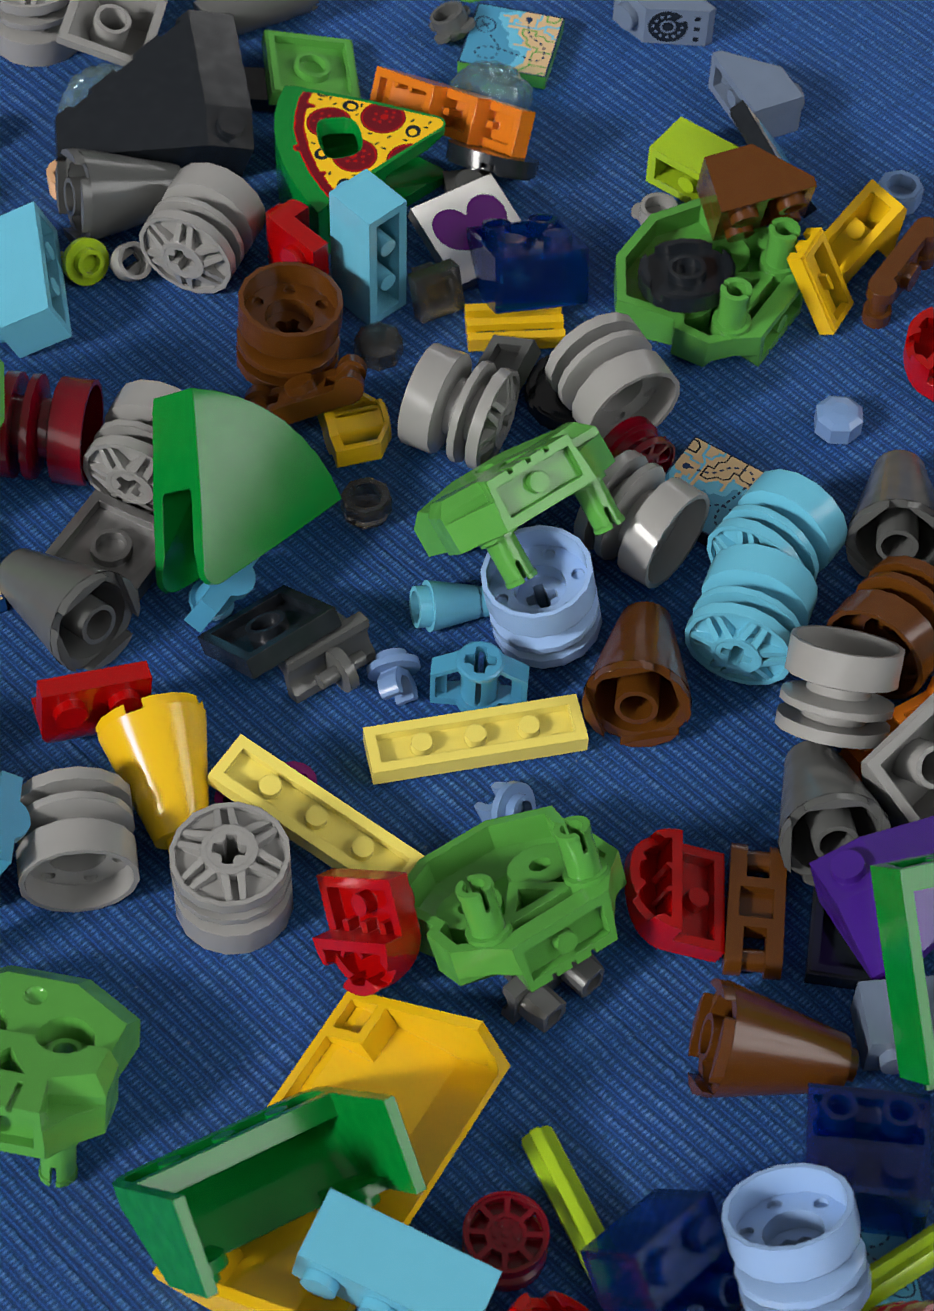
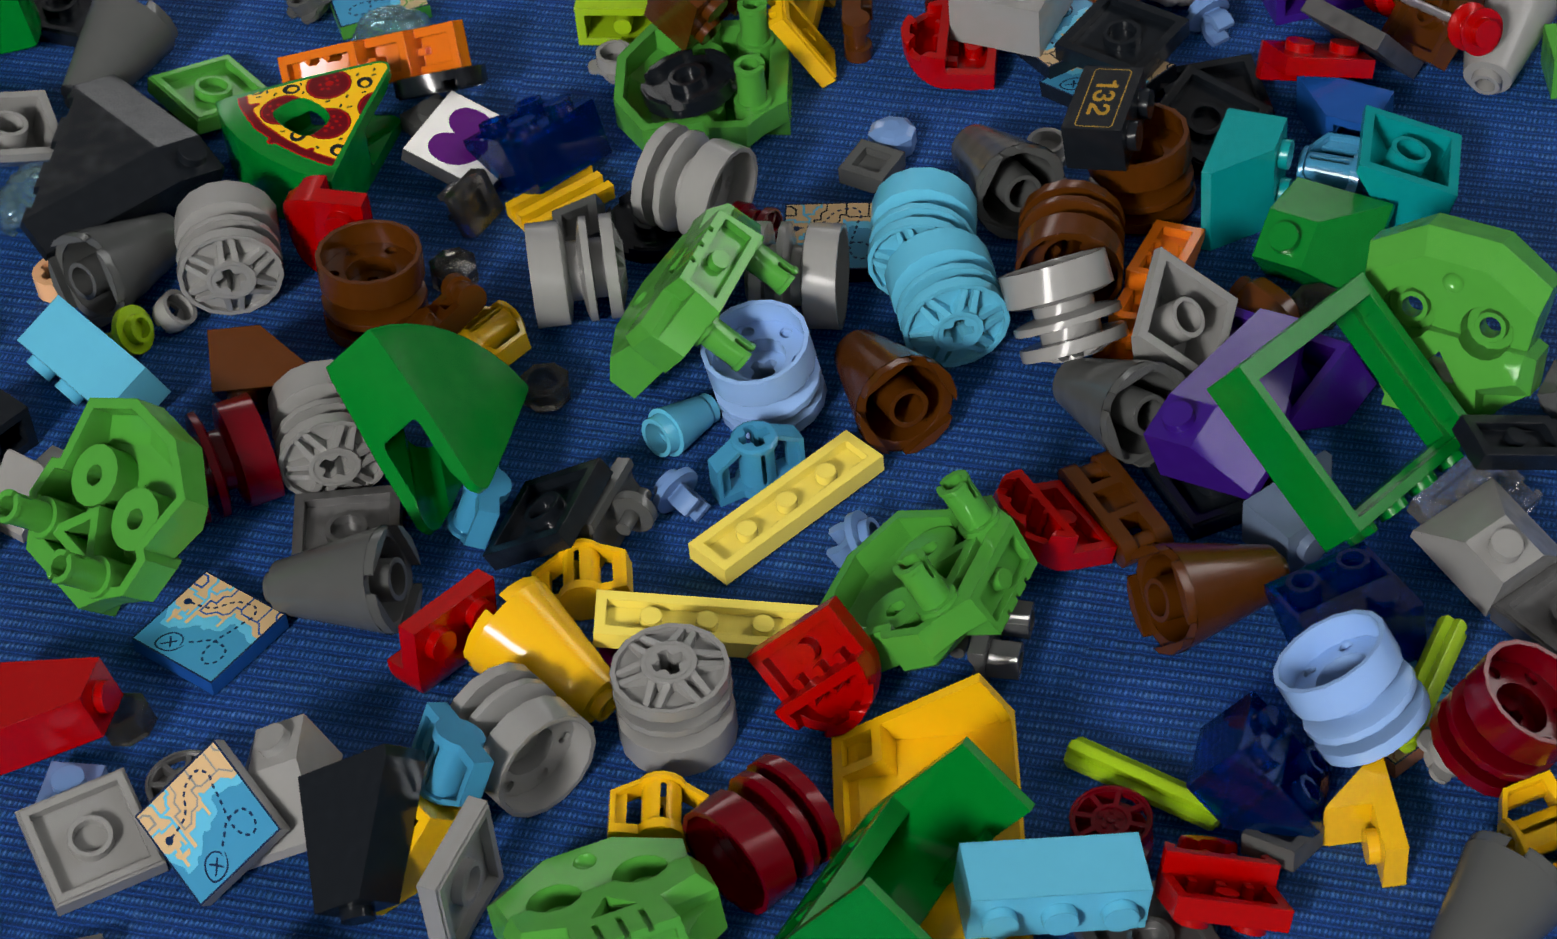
camera: 25 degrees left, 10 degrees down
(128, 351) = (247, 362): none -> reddish brown slope
(149, 980) = (649, 792): none -> yellow piece
(200, 1059) = (762, 833): none -> dark red wheel
(255, 710) = (584, 576): none -> yellow piece
(368, 246) = (400, 175): medium azure brick -> none
(796, 440) = (870, 165): none -> dark grey plate

